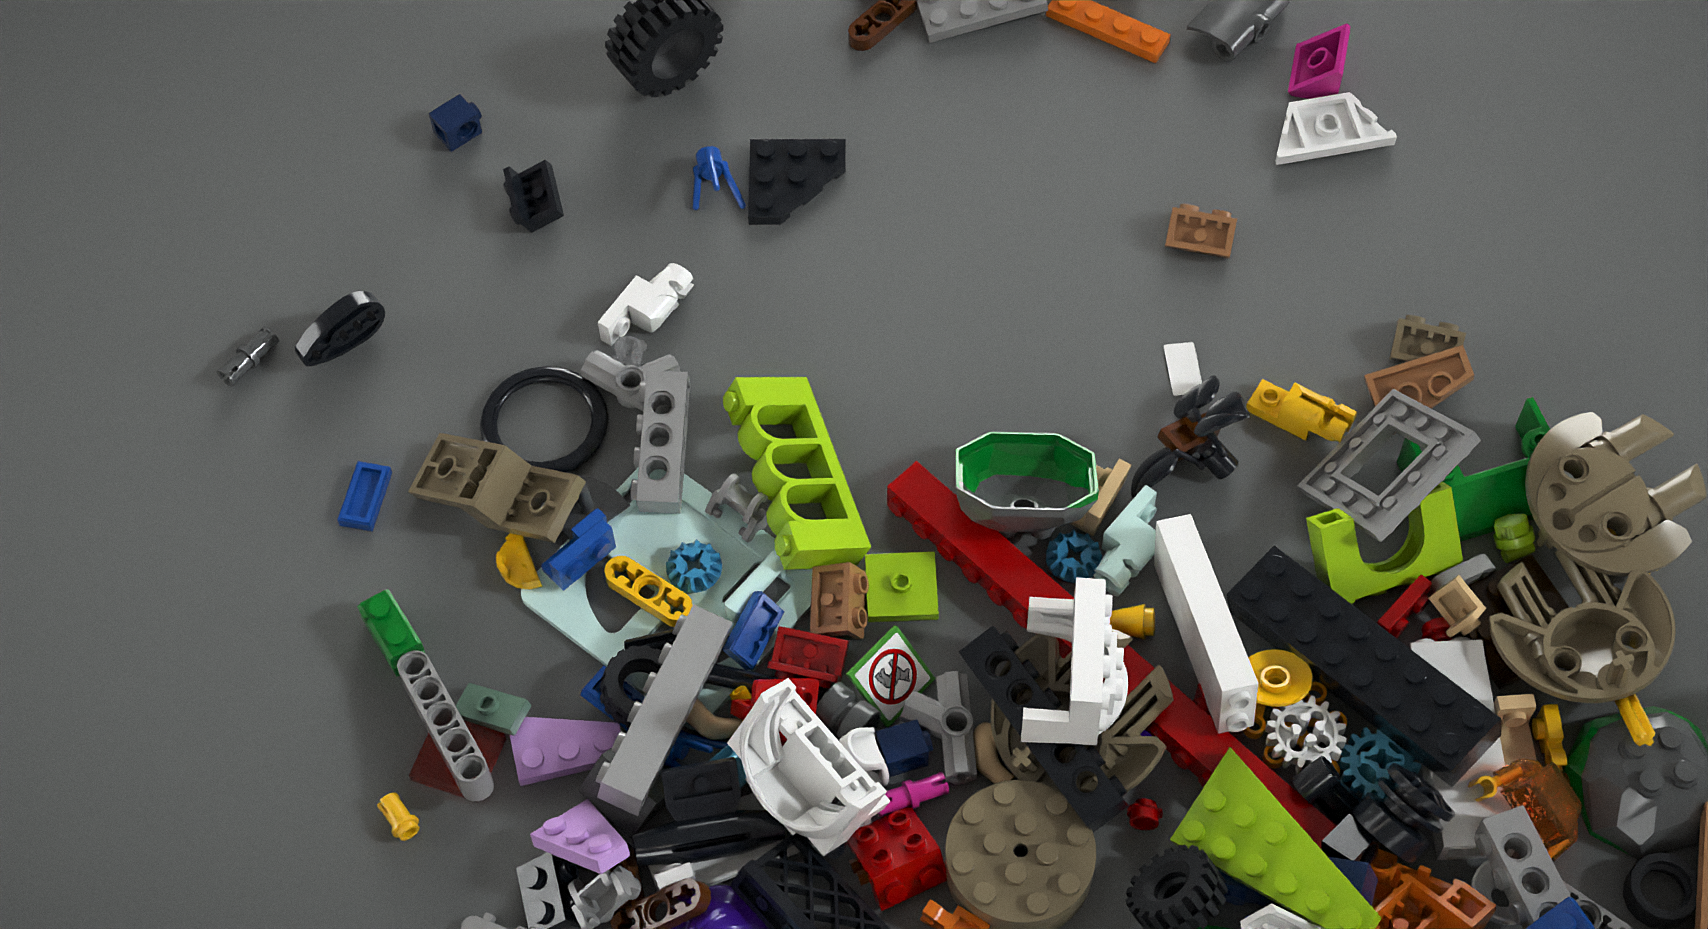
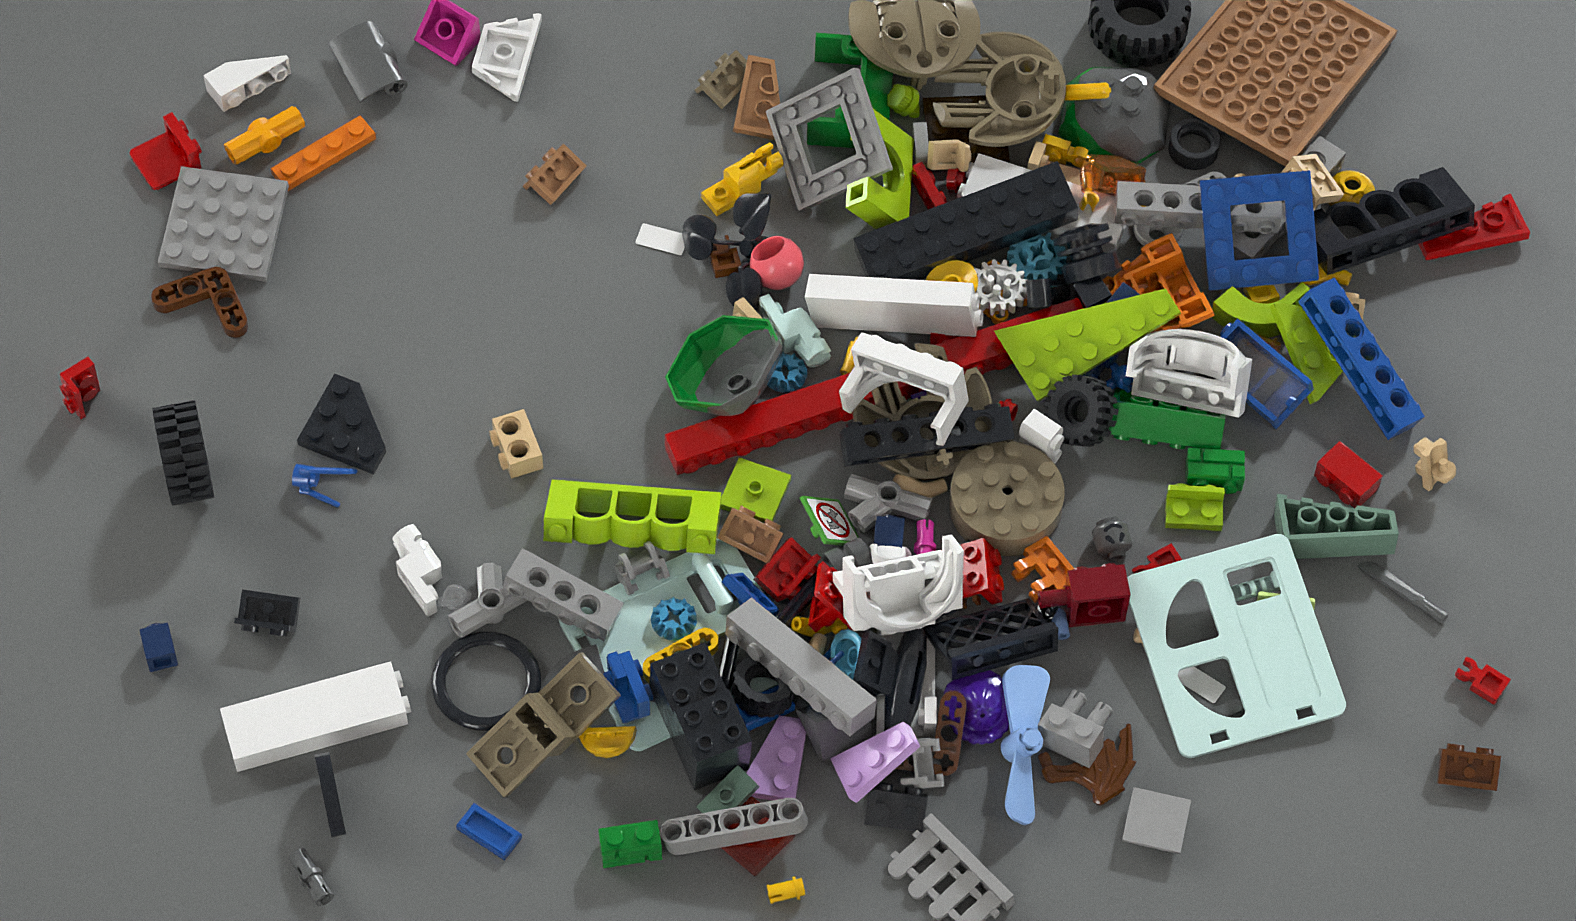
camera: 70 degrees left, 0 degrees up
(432, 284) = (315, 716): none -> white brick
(561, 631) = (700, 715): none -> black piece
(846, 335) = (521, 442): none -> tan brick
(1115, 862) = (1042, 434): none -> white brick
(1203, 485) = (777, 262): none -> coral helmet

